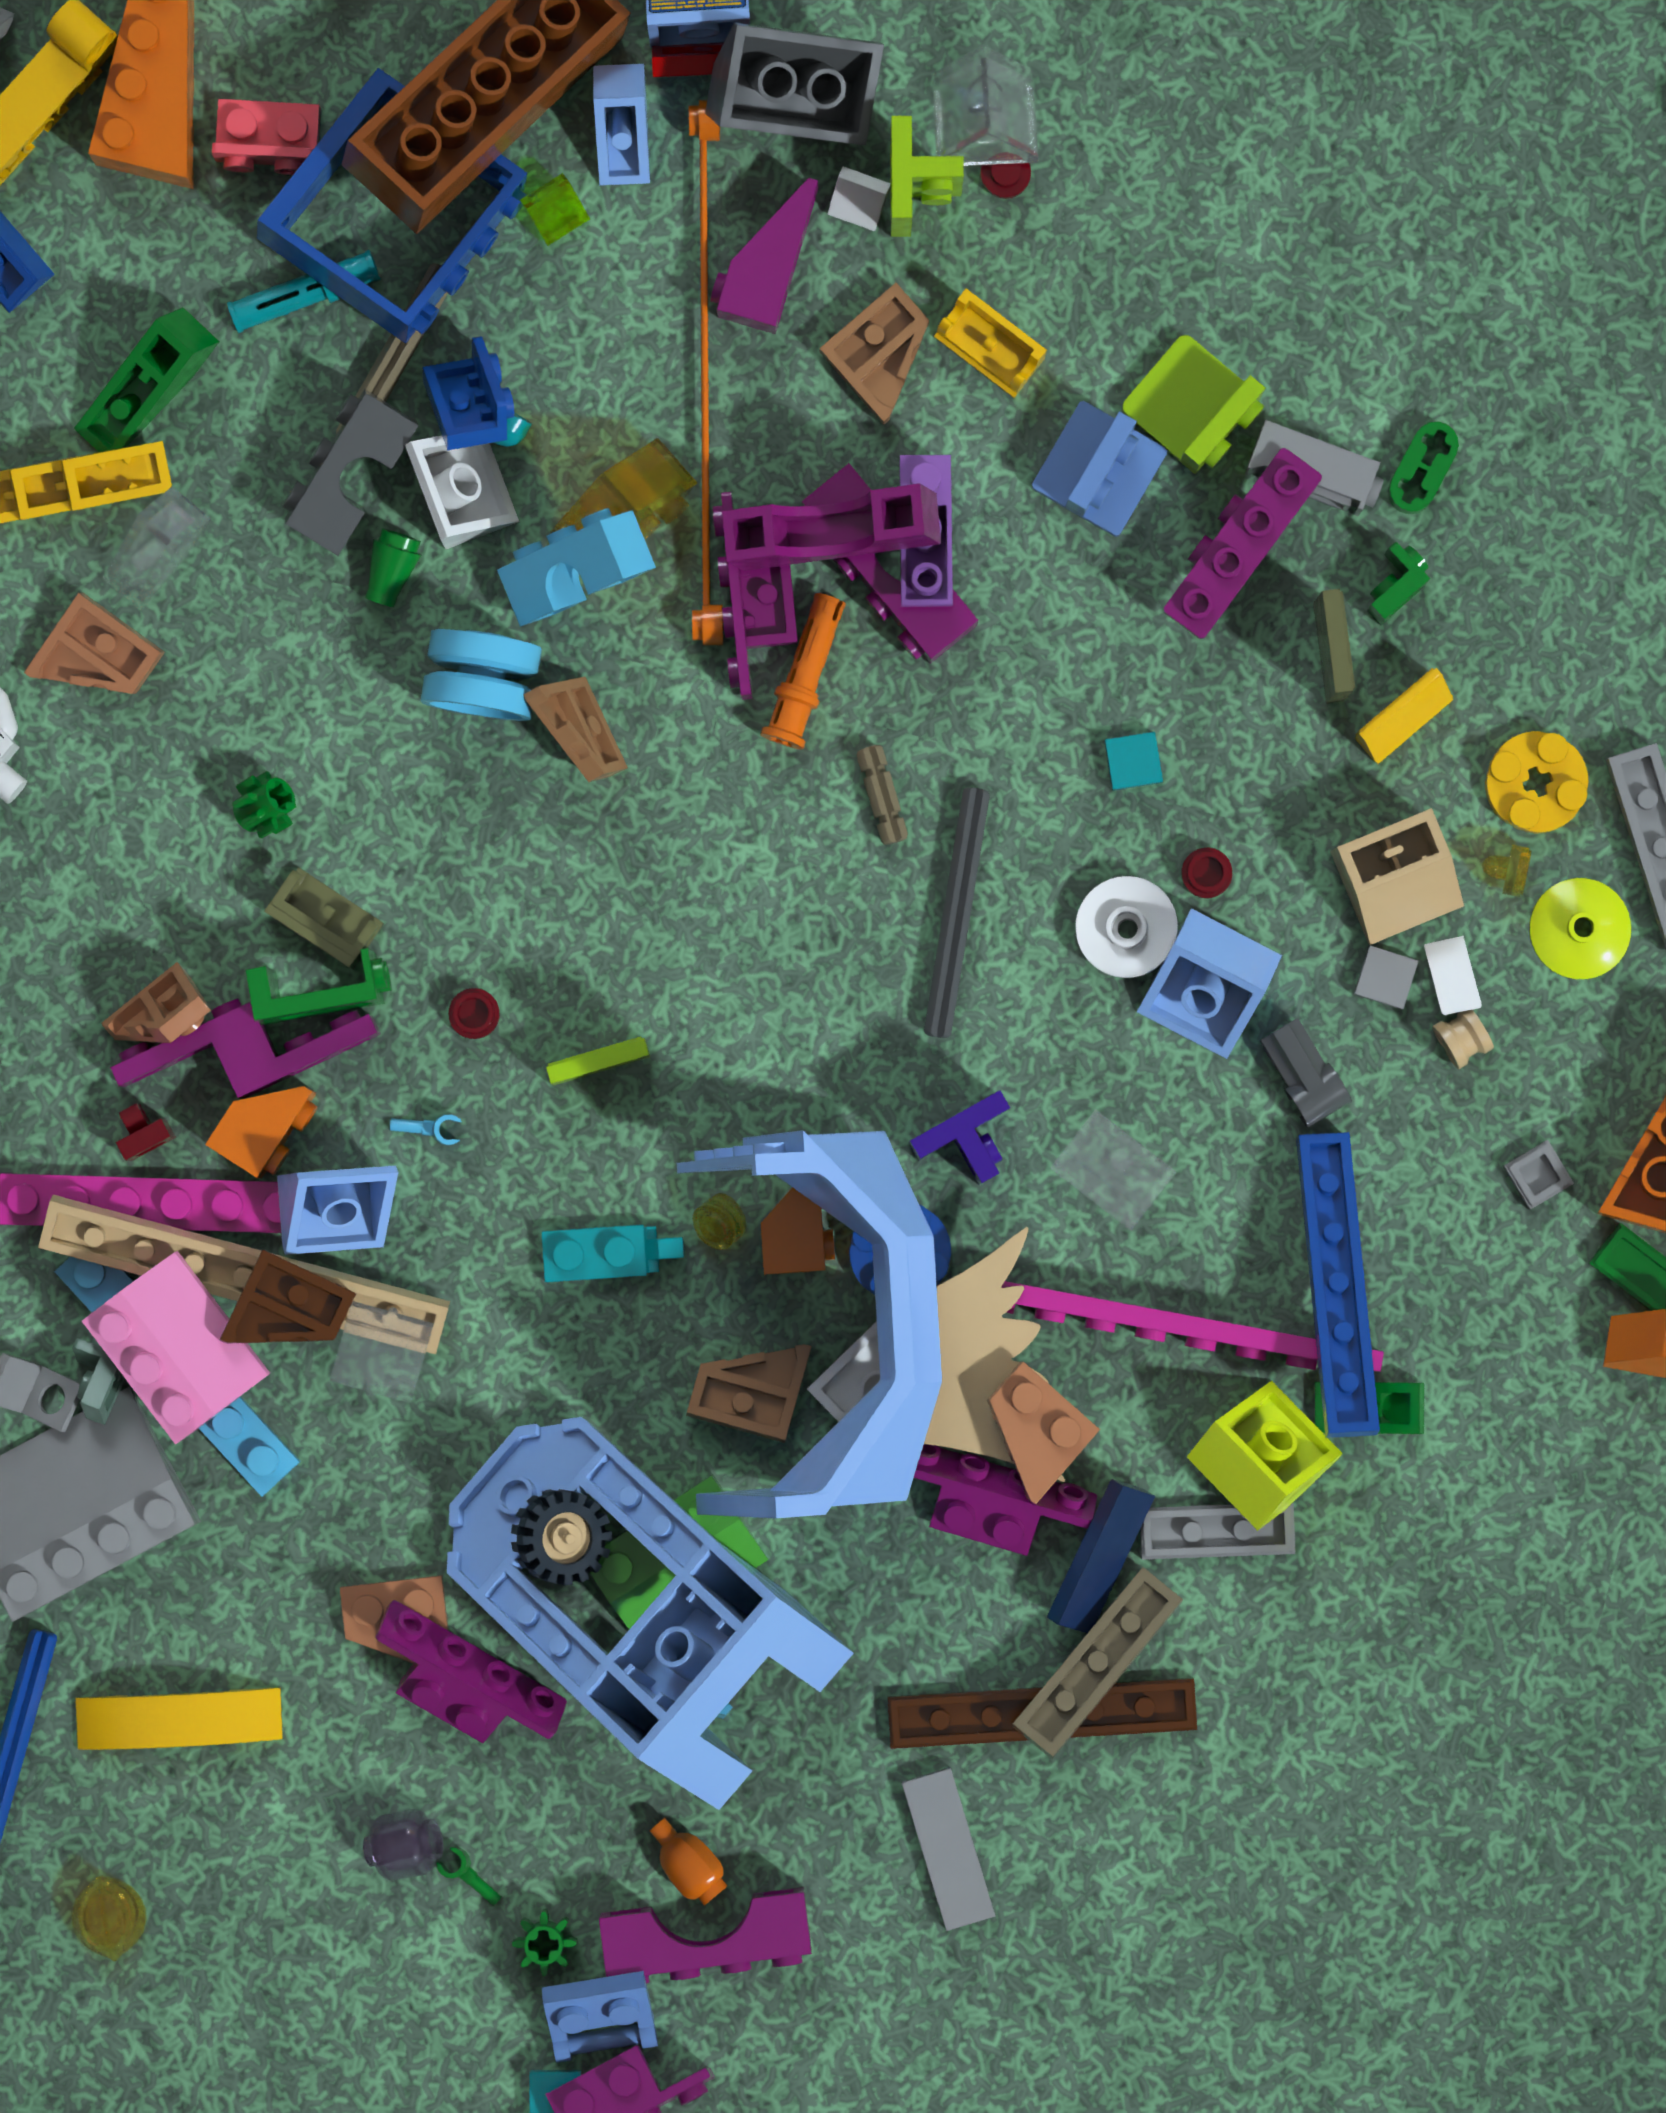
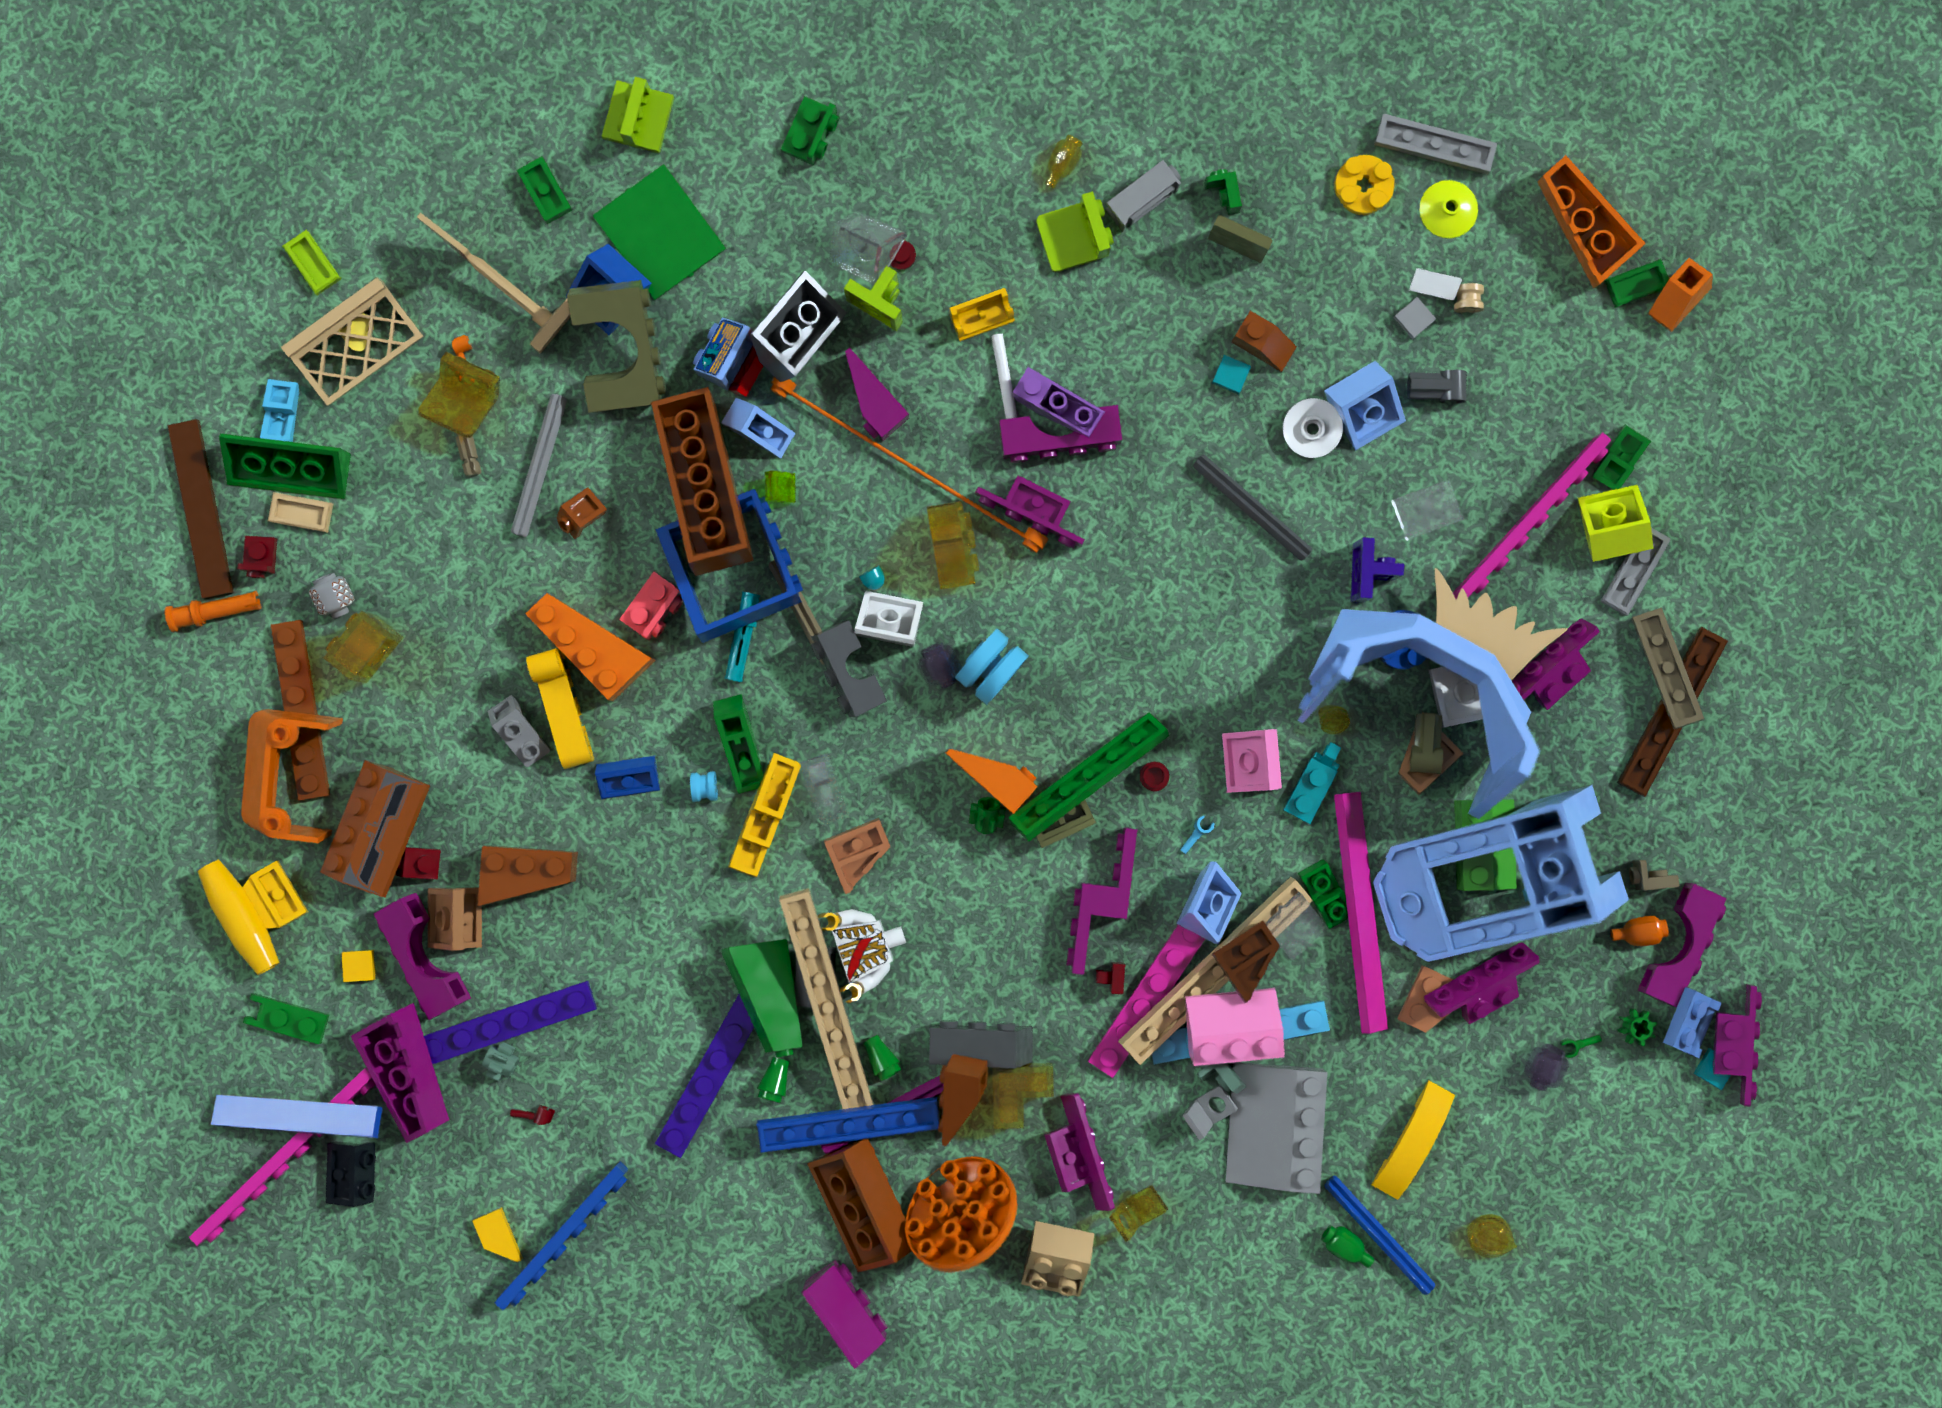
camera: 60 degrees left, 0 degrees up
(51, 371) = (703, 786): none -> medium azure wheel
(160, 1011) = (1058, 930): nougat wing -> none
(258, 1126) = (1145, 917): orange slope -> none
(271, 1009) = (1105, 847): green panel -> none
(323, 793) = (1001, 780): none -> orange slope
(391, 566) = (905, 677): green cone -> none
(410, 915) = (1088, 776): none -> green plate
(440, 599) = (939, 665): none -> head
(458, 1370) = (1325, 893): none -> green slope
(461, 1435) = (1361, 912): none -> dark pink tile
(469, 398) = (849, 587): blue bracket -> none
(561, 1536) = (1450, 893): black wheel -> none
(578, 726) = (1046, 635): medium nougat wing -> none
(584, 1141) = (1252, 761): none -> bright pink bracket
(597, 1060) = (1217, 729): lime tile -> none
(602, 553) = (972, 566): medium azure arch -> none
(752, 1382) = (1427, 750): none -> olive piece
(777, 1839) = (1657, 878): none -> dark tan bracket
(795, 1237) = (1366, 687): orange slope -> none
(798, 694) = (1096, 518): orange pin -> none
(801, 534) = (1031, 446): magenta arch -> none
(858, 198) = (869, 334): white tile -> none
(879, 349) = (950, 372): medium nougat wing -> none
(882, 794) = (1171, 507): dark tan axle -> none
(922, 433) = (1004, 376): none -> white bar
(948, 1849) = (1711, 799): light grey tile -> none
(1038, 1429) = (1537, 624): nougat wing -> none
(1099, 467) = (1076, 300): medium blue bracket -> none
(1100, 1556) = (1615, 634): dark blue tile -> none
(1206, 872) = (1309, 373): dark red plate -> none
(1210, 778) = (1264, 341): none -> dark orange slope
(1242, 543) = (1159, 252): magenta bracket -> none
(1294, 320) = (1063, 160): none -> clear yellow plant
(1337, 1285) = (1557, 434): blue plate -> none
(1399, 876) = (1370, 279): tan slope -> none
(1404, 715) = (1291, 228): yellow slope -> none
(1412, 462) = (1169, 146): green beam -> none
(1511, 869) = (1400, 223): clear yellow tile -> none
(1538, 1174) = (1557, 304): light grey tile -> none

